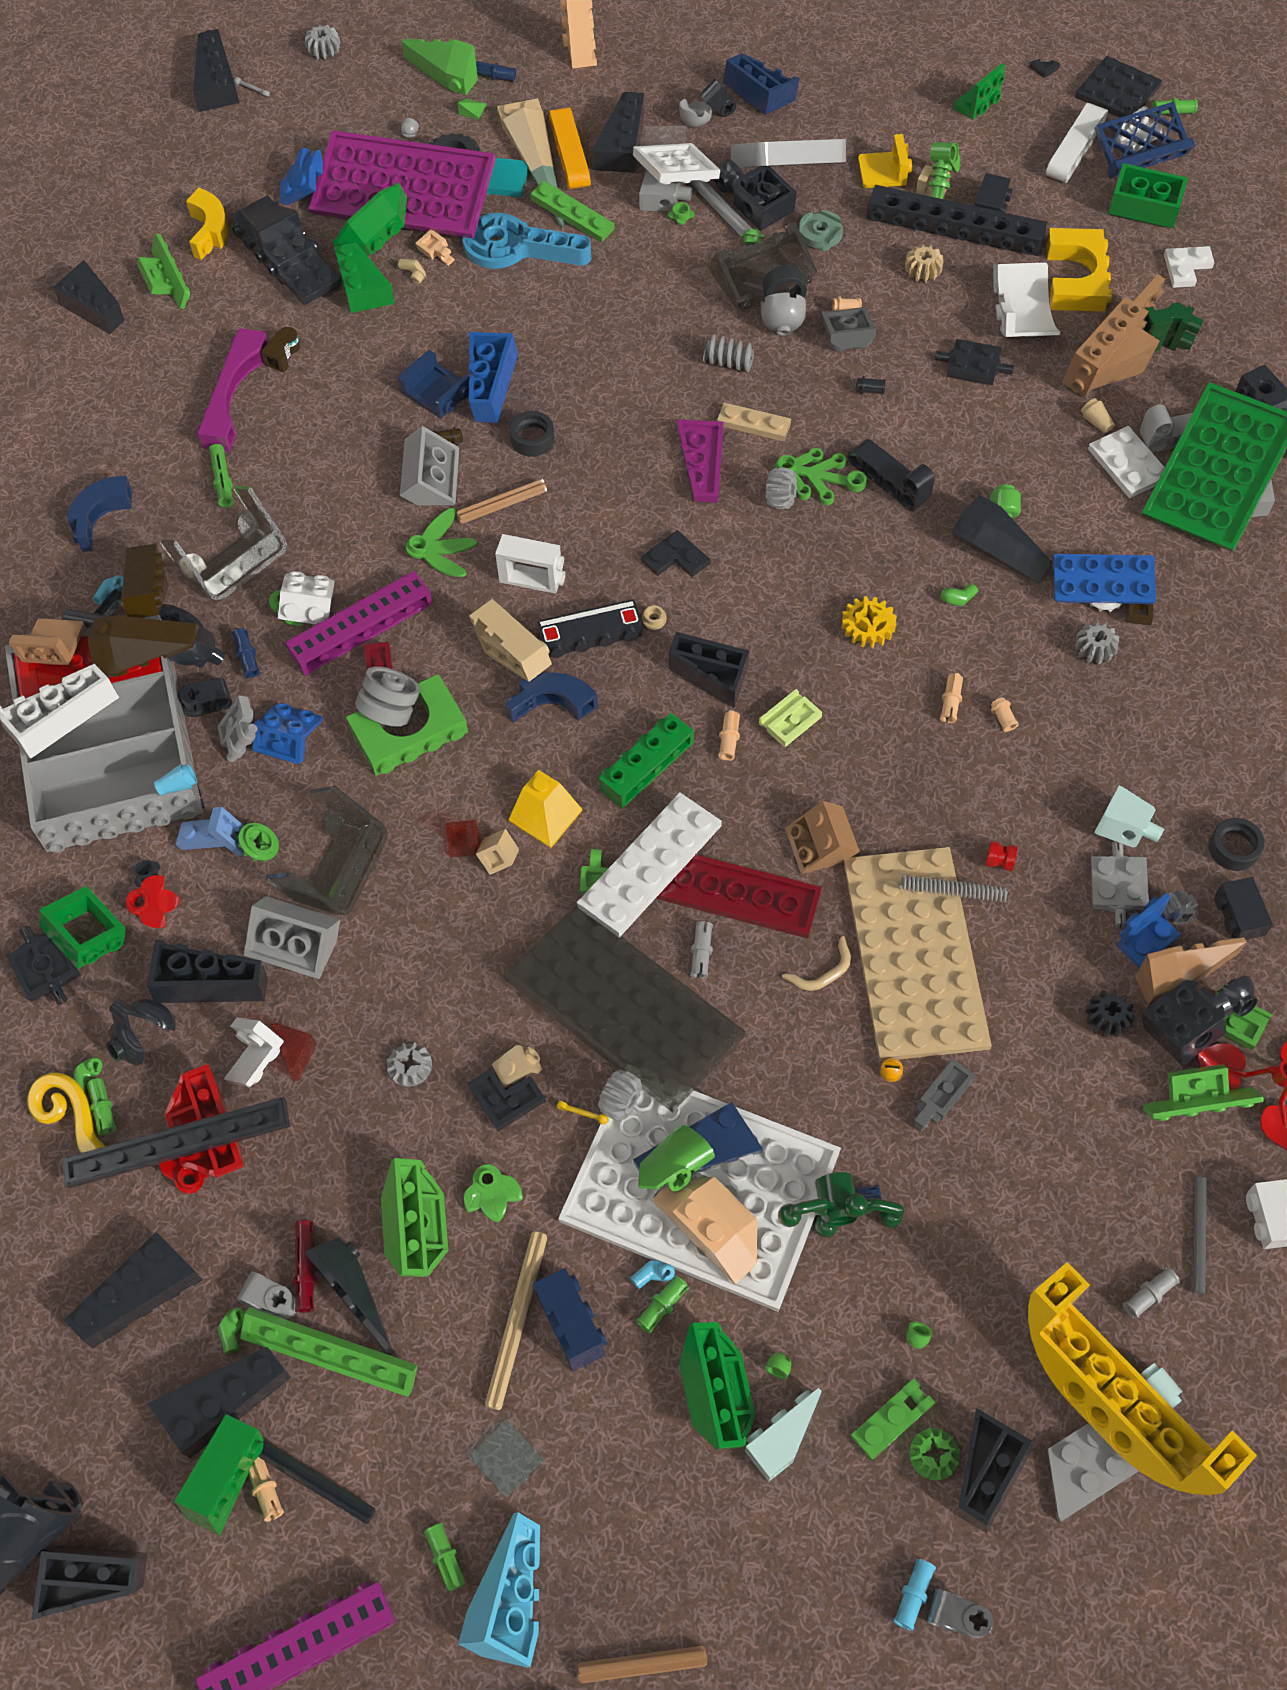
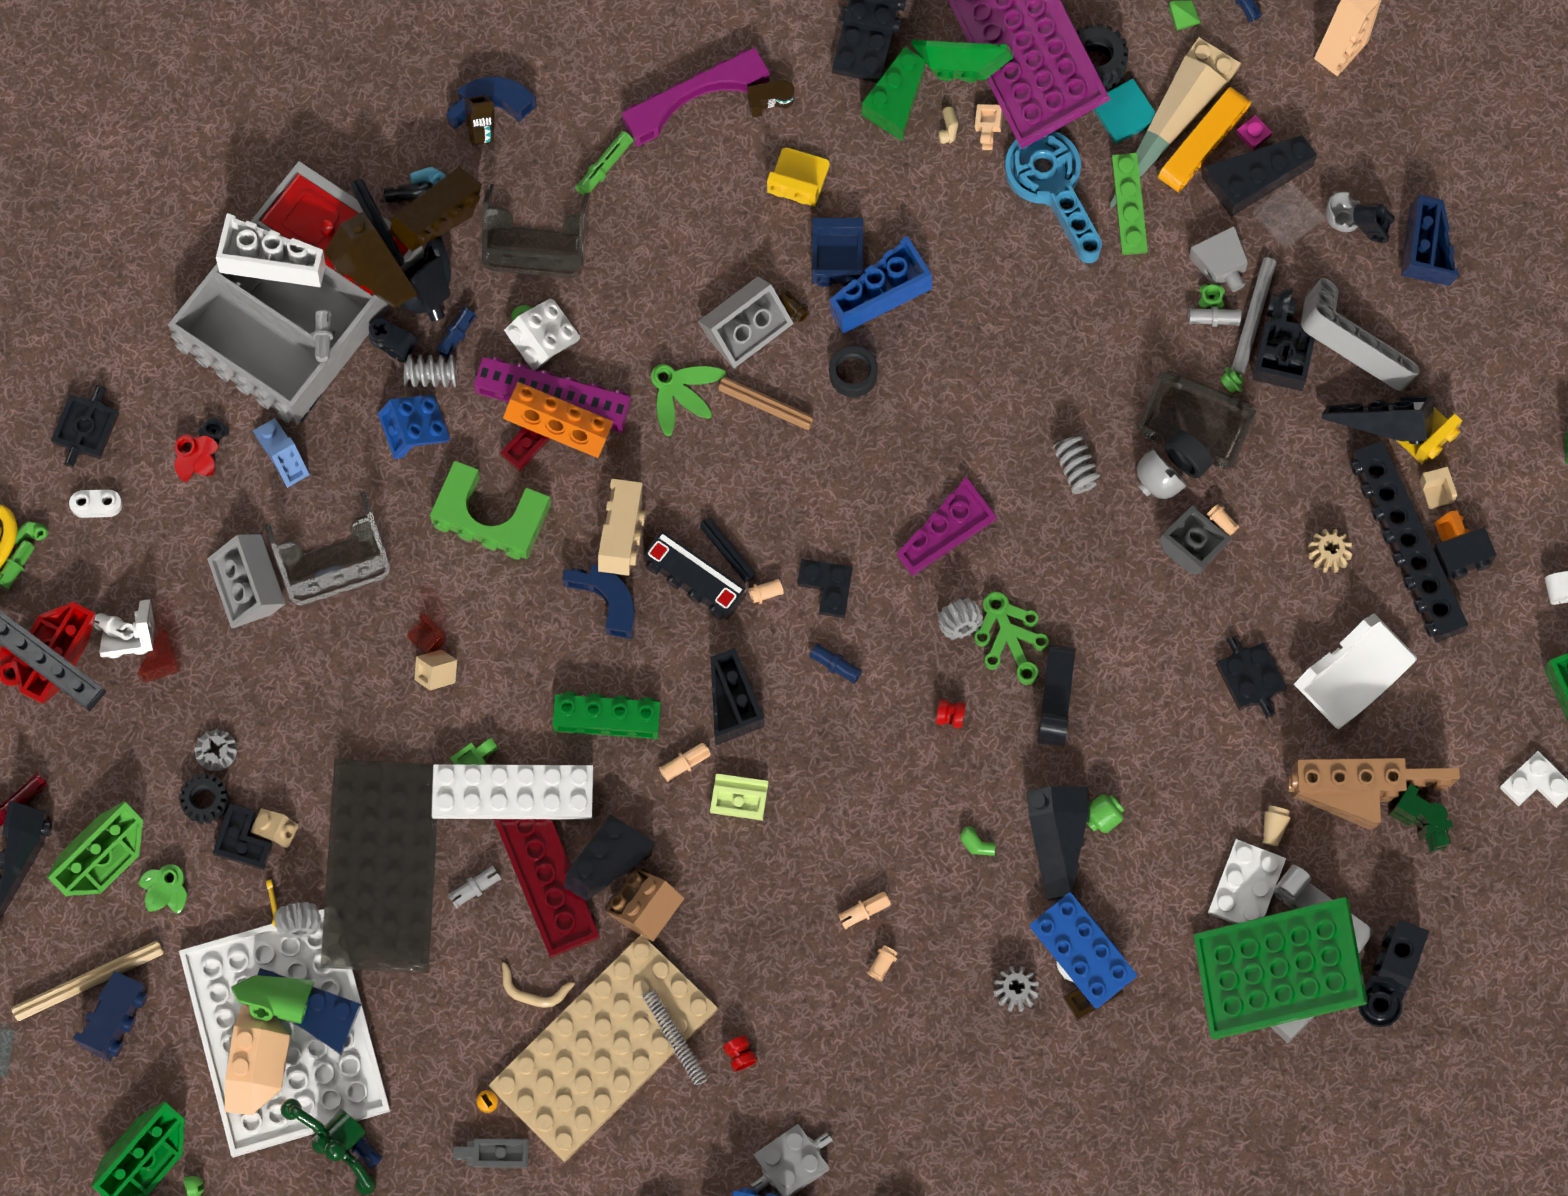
camera: 50 degrees right, 10 degrees up
(50, 642) = (324, 194): medium nougat bracket -> none
(70, 907) = (136, 404): green window -> none
(104, 522) = (479, 119): none -> dark brown leg
(104, 1023) = (95, 503): none -> white plate
(123, 1042) = (101, 532): black animal -> none
(158, 722) = (322, 335): none -> light grey axle
(176, 780) = (286, 394): medium azure cone -> none
(202, 976) = (162, 546): black wedge -> none
(233, 1061) = (113, 626): none -> white pin
(235, 728) = (381, 384): light grey plate -> none
(259, 684) = (430, 371): none -> light grey piece
(266, 838) = (311, 490): bright green gear -> none
(358, 372) = (798, 176): none -> yellow bracket
(387, 696) = (495, 476): light grey wheel -> none
(397, 629) = (558, 419): none -> orange brick
(437, 1087) = (204, 783): none -> black tyre
(534, 553) = (711, 480): white window -> none
(544, 809) = (500, 675): yellow slope -> none
(587, 597) = (727, 549): none -> black axle
(590, 124) = (1254, 132): none -> dark pink plate
(644, 594) = (765, 591): none -> light nougat pin
(653, 1271) = (194, 1047): medium azure arm -> none
(654, 611) = (753, 609): tan plate -> none
(662, 1304) = (174, 1072): bright green pin -> none
(676, 163) = (1251, 250): white plate -> none
(697, 220) = (1214, 316): none -> light grey pin
(741, 588) = (835, 663): none -> dark blue pin
(754, 421) = (1023, 540): tan plate -> none
(762, 834) = (606, 857): none -> black wedge
(821, 239) = (1305, 420): sand green plate -> none
(848, 542) = (950, 713): none -> red wheel
(869, 621) = (893, 798): yellow gear -> none
(870, 164) = (1402, 421): none -> black wedge
(870, 385) = (1145, 607): black pin -> none
(943, 155) = (1461, 480): bright green piece -> none
(966, 193) = (1450, 526): none -> orange tile
(1089, 249) = (1423, 721): yellow arch -> none
(1128, 819) = (852, 1129): light aqua torso -> none

